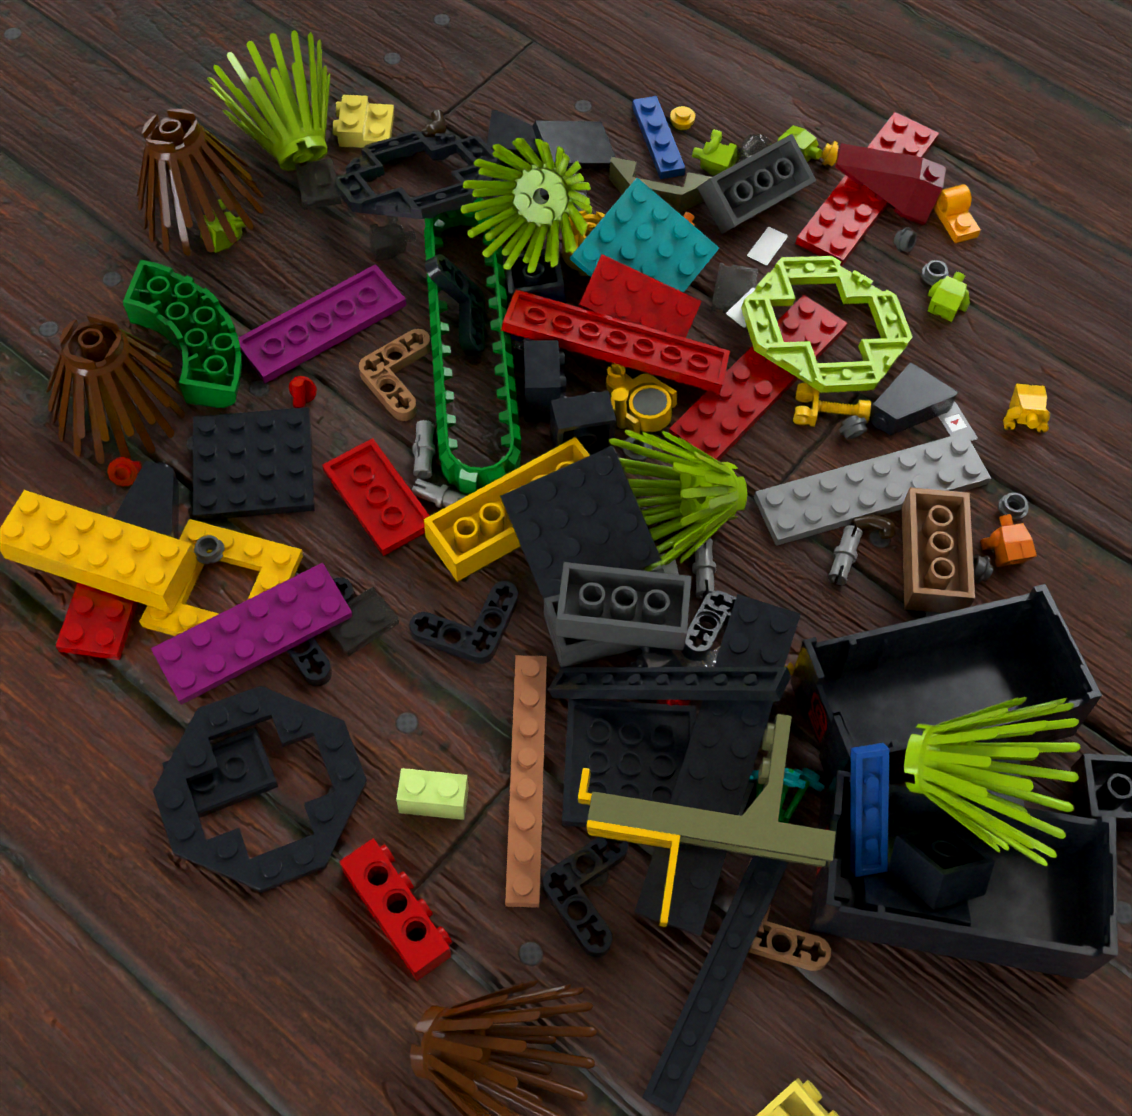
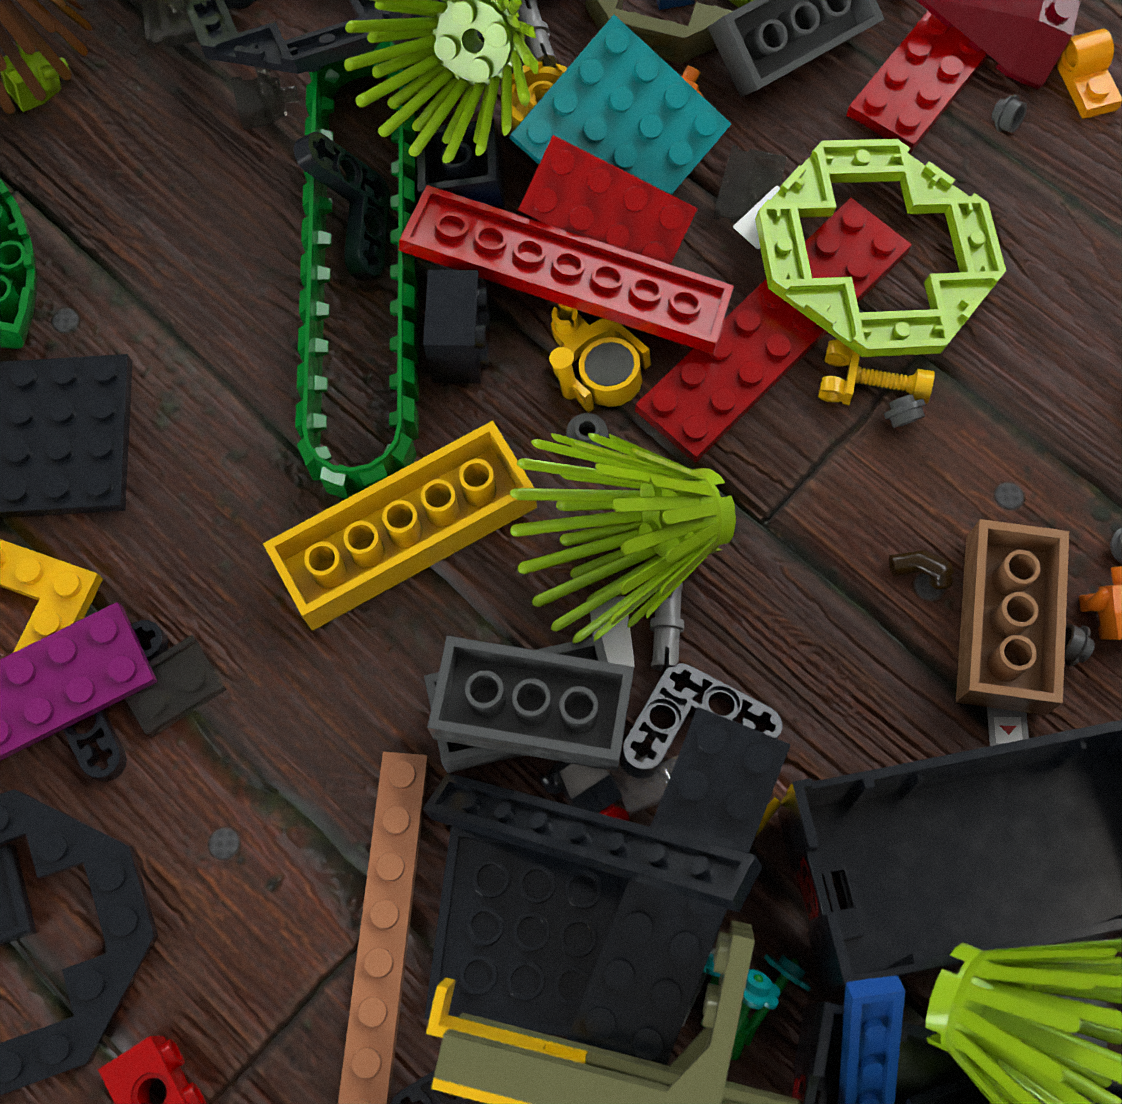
camera: 10 degrees right, 10 degrees up
(302, 391) = (119, 330): red plate -> none
(320, 323) = (155, 225): magenta plate -> none
(377, 496) = (210, 495): red plate -> none
(387, 368) = (238, 305): medium nougat beam -> none
(423, 449) = (282, 425): light grey pin -> none
(432, 793) = (243, 965): yellowish green brick -> none
(441, 496) = (300, 497): light grey pin -> none
(470, 636) = (321, 717): black beam -> none
(580, 517) = (485, 564): black plate -> none
(584, 417) = (508, 393): black brick -> none
(767, 246) = (805, 117): white sticker -> none
(845, 555) = (875, 613): light grey pin -> none
(868, 487) = (923, 506): light grey plate -> none
(911, 401) = (994, 372): slope -> none
(934, 271) = (1053, 160): dark grey plate -> none
(949, 296) = (1066, 207): lime piece -> none
(956, 423) = (1058, 406): light grey sticker -> none

